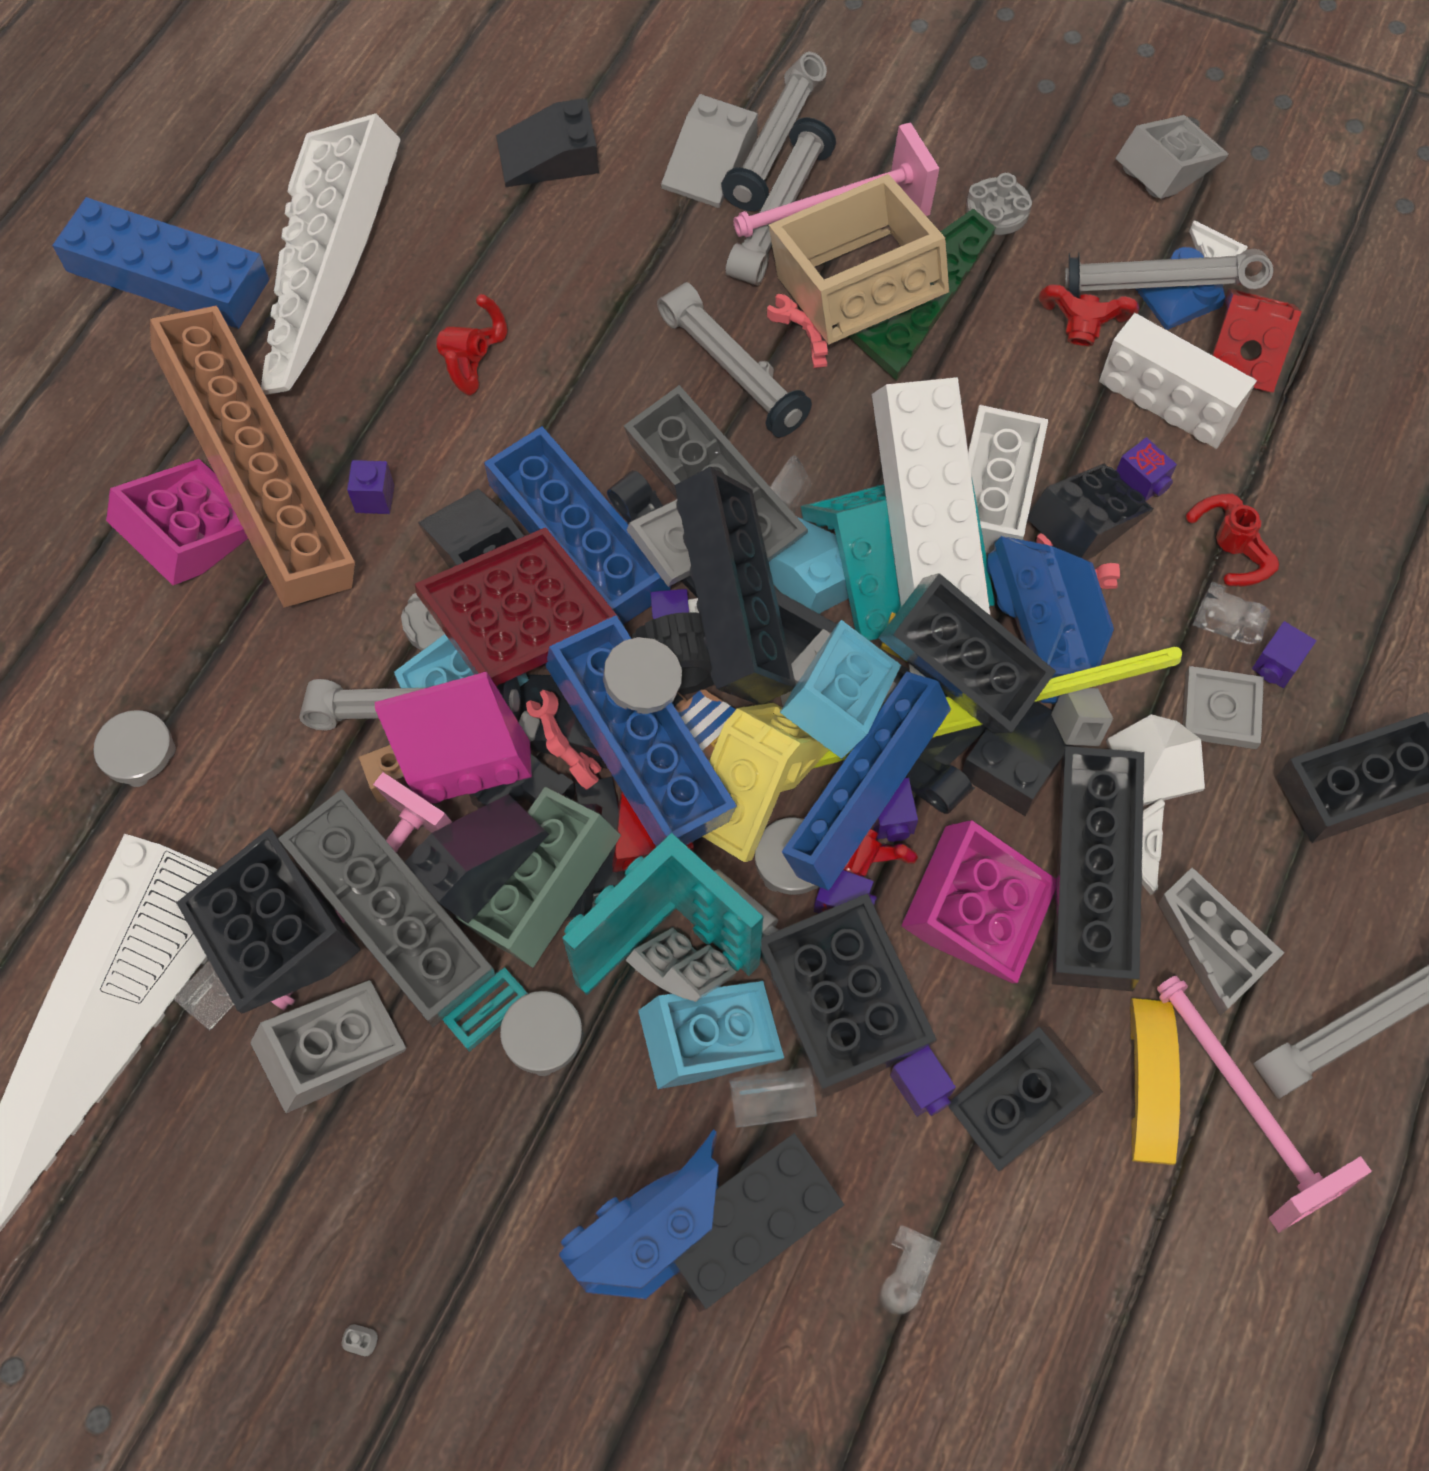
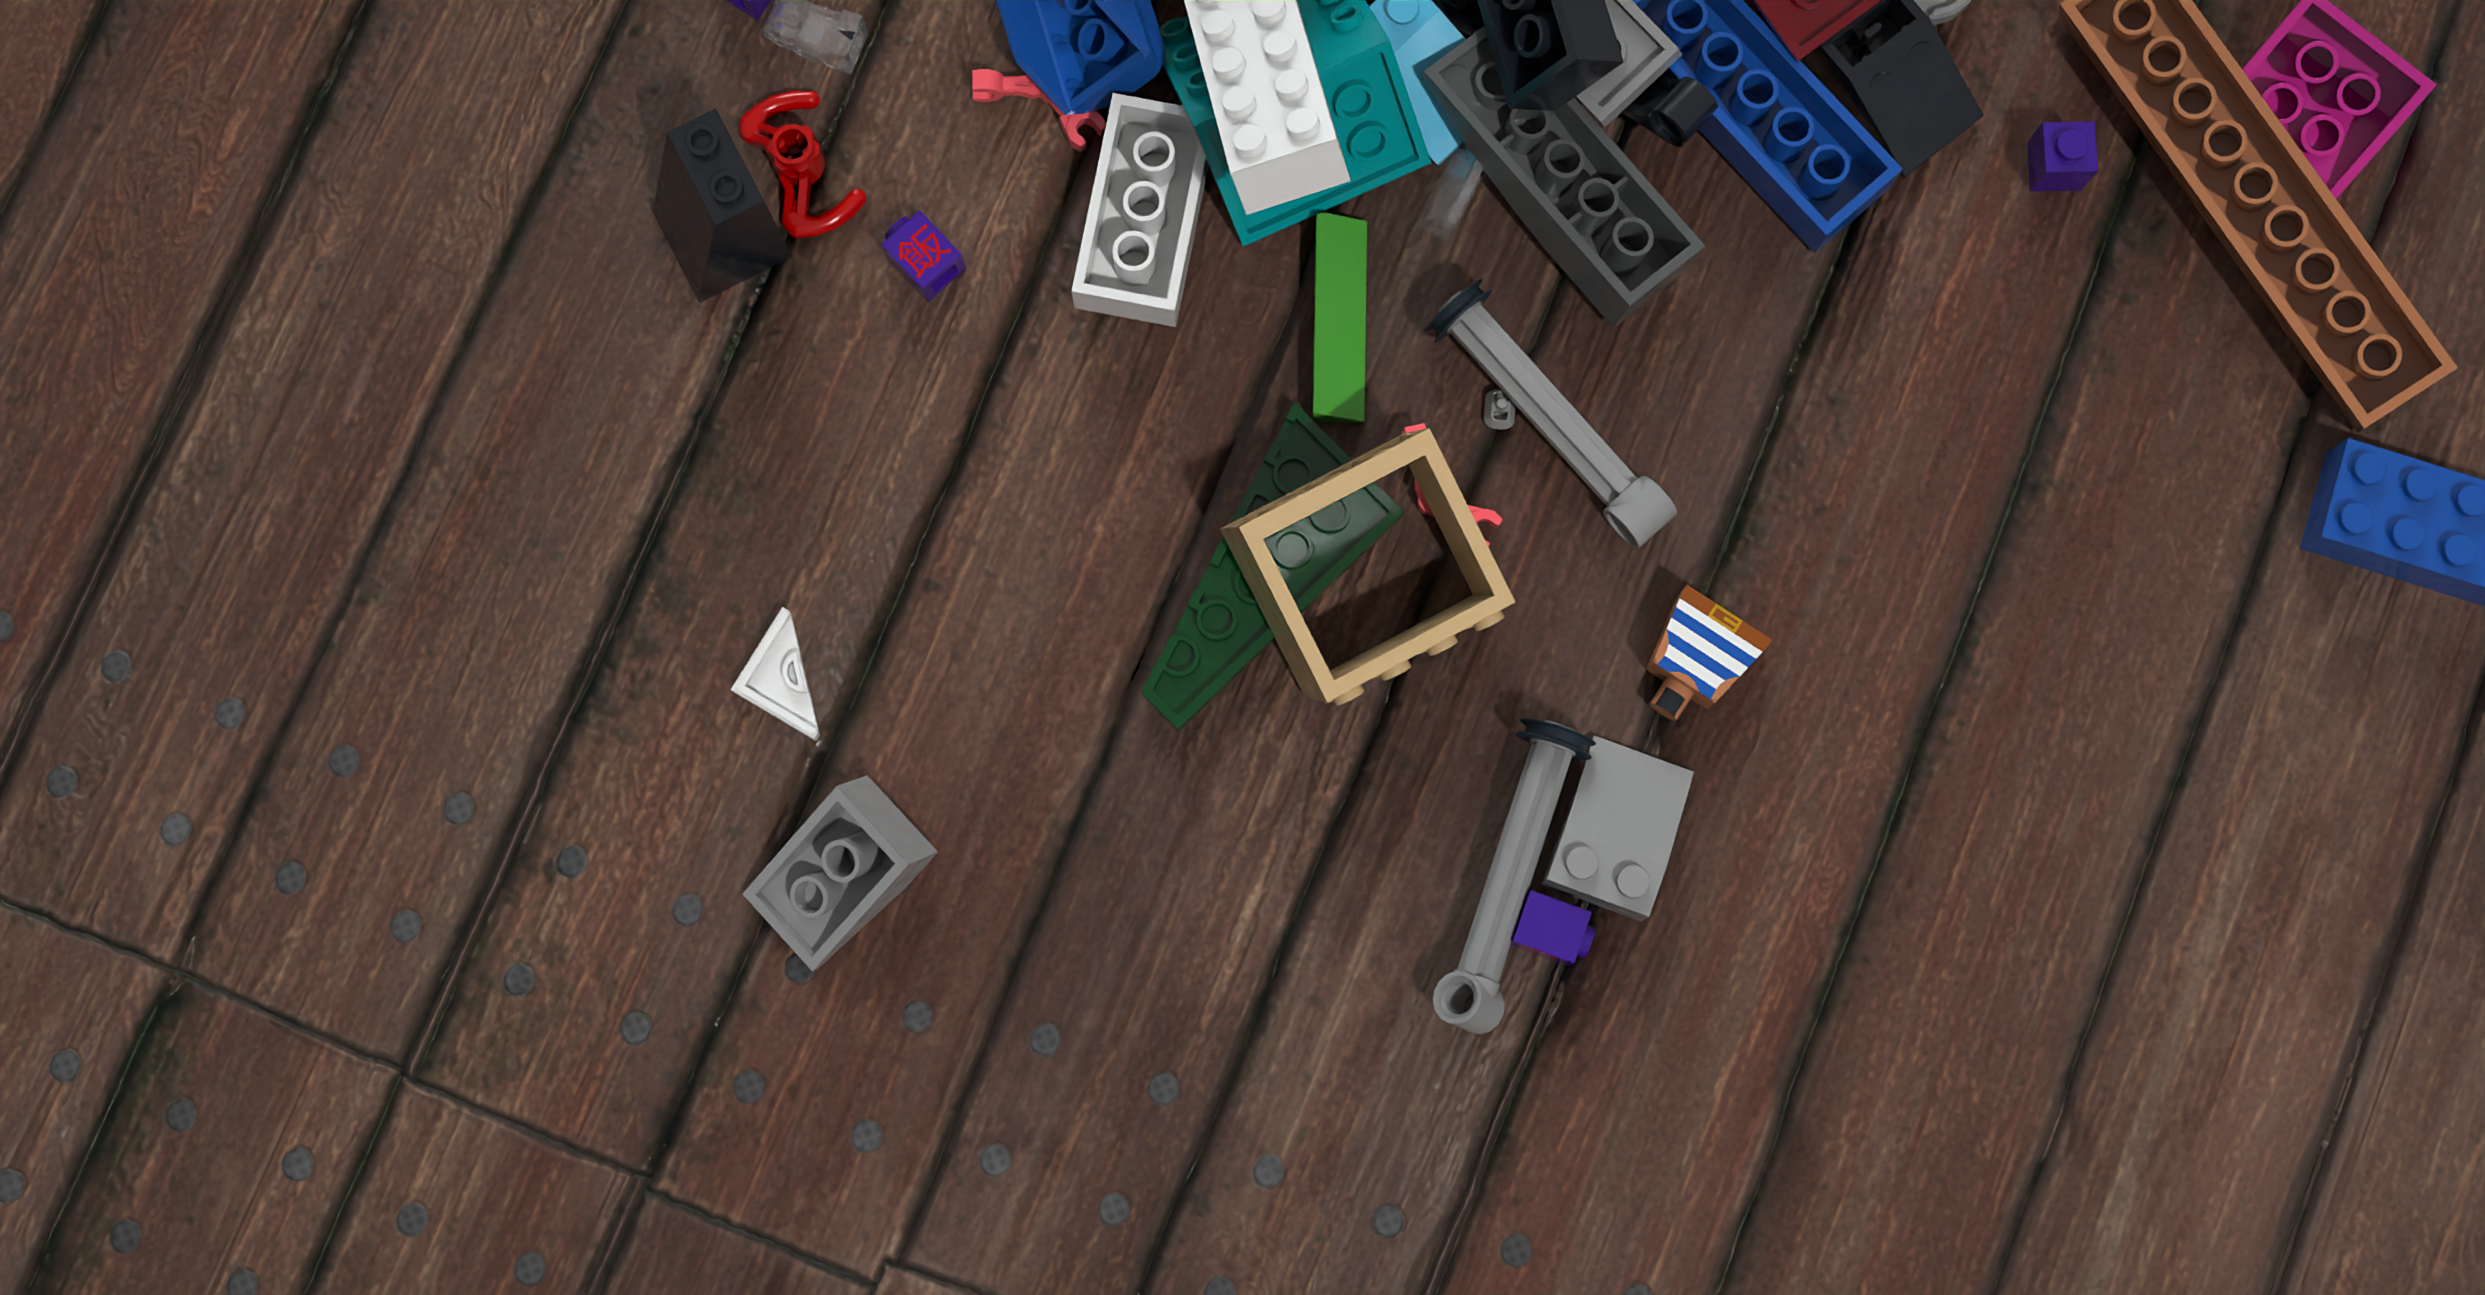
camera: 175 degrees right, 15 degrees up
(330, 219) = (2224, 677): white wedge -> none
(467, 346) = (1958, 410): red piece -> none
(549, 145) = (1891, 828): black slope -> none
(649, 232) = (1700, 653): none -> torso
(757, 100) = (1553, 929): none -> dark purple brick
(811, 142) = (1536, 613): light grey piece -> none
(862, 448) = (1339, 319): none -> bright green slope
(911, 169) = (1287, 775): bright pink tile -> none
(1001, 202) = (1132, 758): light grey tile -> none
(1086, 313) = (999, 522): red piece -> none
(1088, 511) = (1007, 185): black slope -> none
(1167, 273) = (748, 577): light grey piece -> none
(1176, 380) = (871, 387): white brick -> none
(1182, 303) = (847, 603): blue slope -> none
(1261, 320) = (736, 494): red bracket -> none
(1290, 474) = (713, 209): none -> black slope

